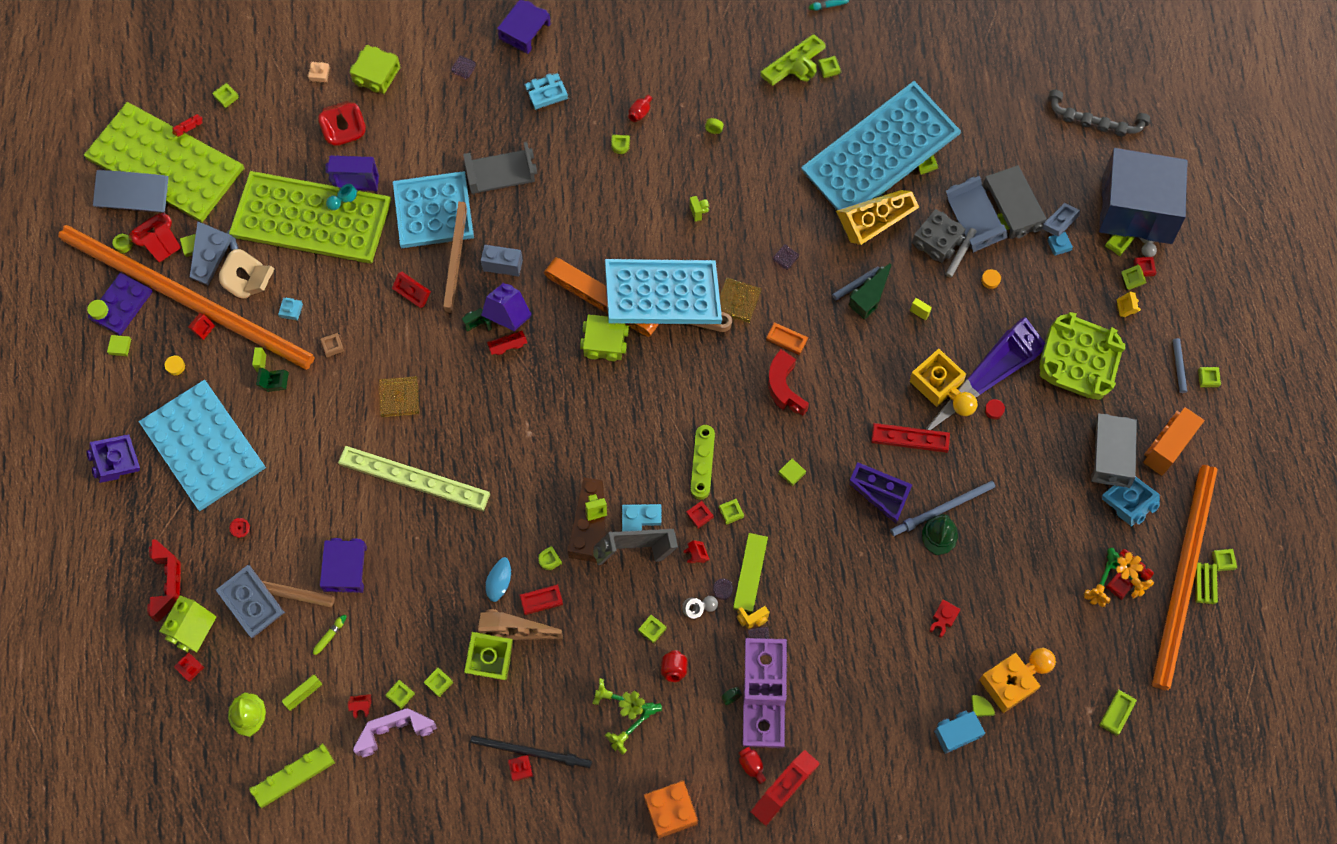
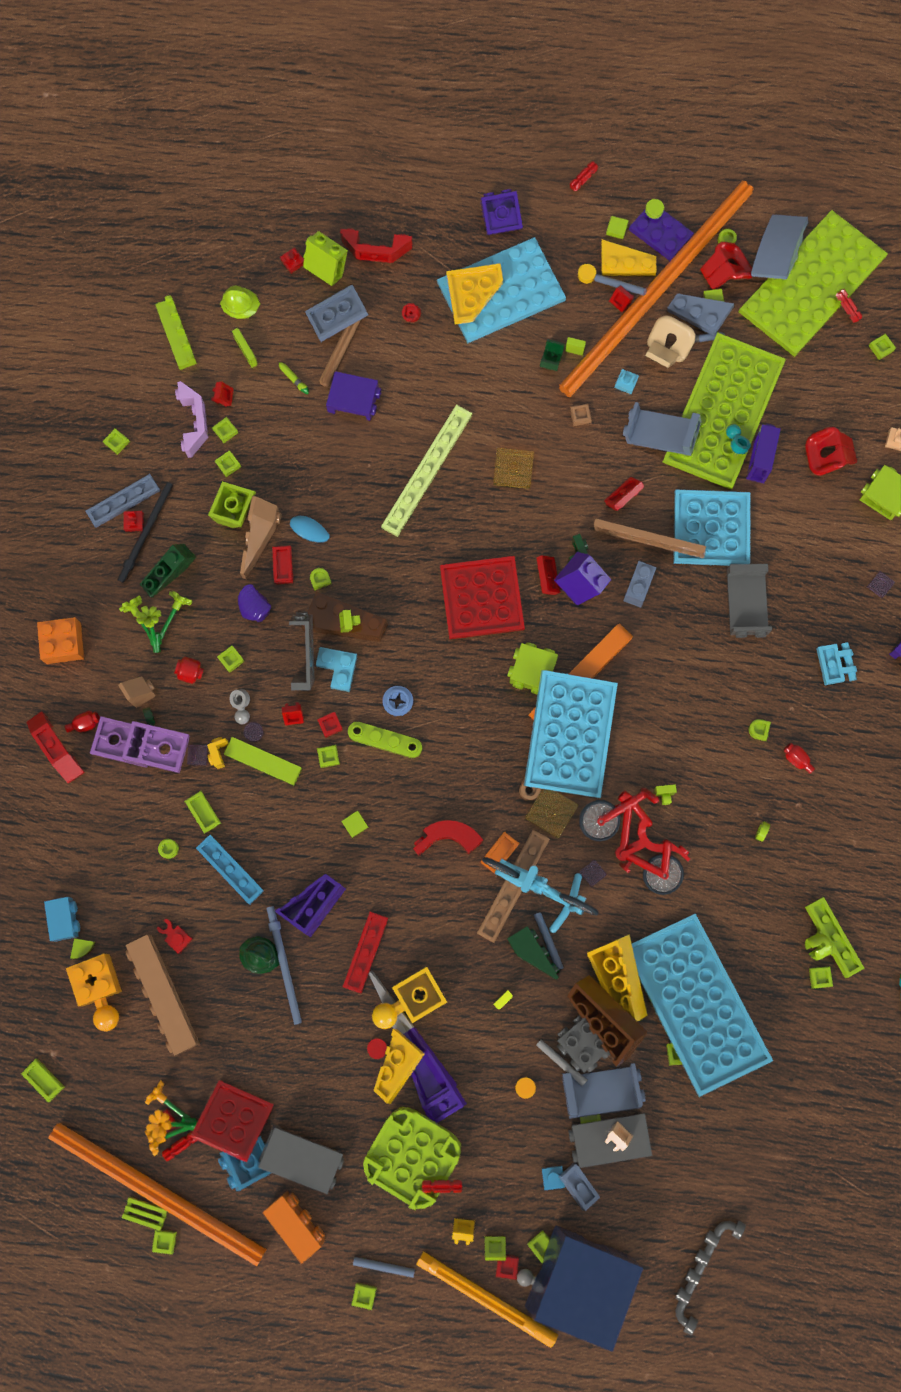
camera: 105 degrees right, 10 degrees up
(62, 387) = (583, 176): none -> red axle
(156, 332) = (624, 261): none -> yellow wing
(185, 330) = (615, 283): none -> sand blue bar
(209, 466) = (472, 290): none -> yellow plate
(341, 263) = (662, 431): none -> sand blue panel
(431, 811) = (116, 441): none -> lime tile
(499, 786) = (122, 500): none -> sand blue tile
(541, 399) = (482, 597): none -> red plate
(569, 715) = (167, 569): none -> dark green slope
(592, 613) = (253, 604): none -> dark purple hair
(655, 451) = (393, 693): none -> medium blue gear
(708, 710) = (137, 691): none -> medium nougat slope
(738, 248) = (601, 822): none -> piece
(814, 321) = (509, 892): none -> medium nougat tile
(815, 282) = (531, 881): none -> medium azure piece
(815, 619) = (202, 812): none -> lime tile
(860, 645) = (168, 848): none -> lime tile
(866, 578) = (230, 869): none -> dark azure plate
(916, 213) = (607, 1019): none -> reddish brown wedge
(1003, 613) = (162, 995): none -> medium nougat brick
(1005, 385) = (398, 1066): none -> yellow wing
(1011, 189) = (619, 1136): none -> light nougat tile
(1098, 324) = (442, 1186): none -> red axle
(1100, 517) = (232, 1121): none -> red plate
(1176, 279) = (487, 1299): none -> light orange piece

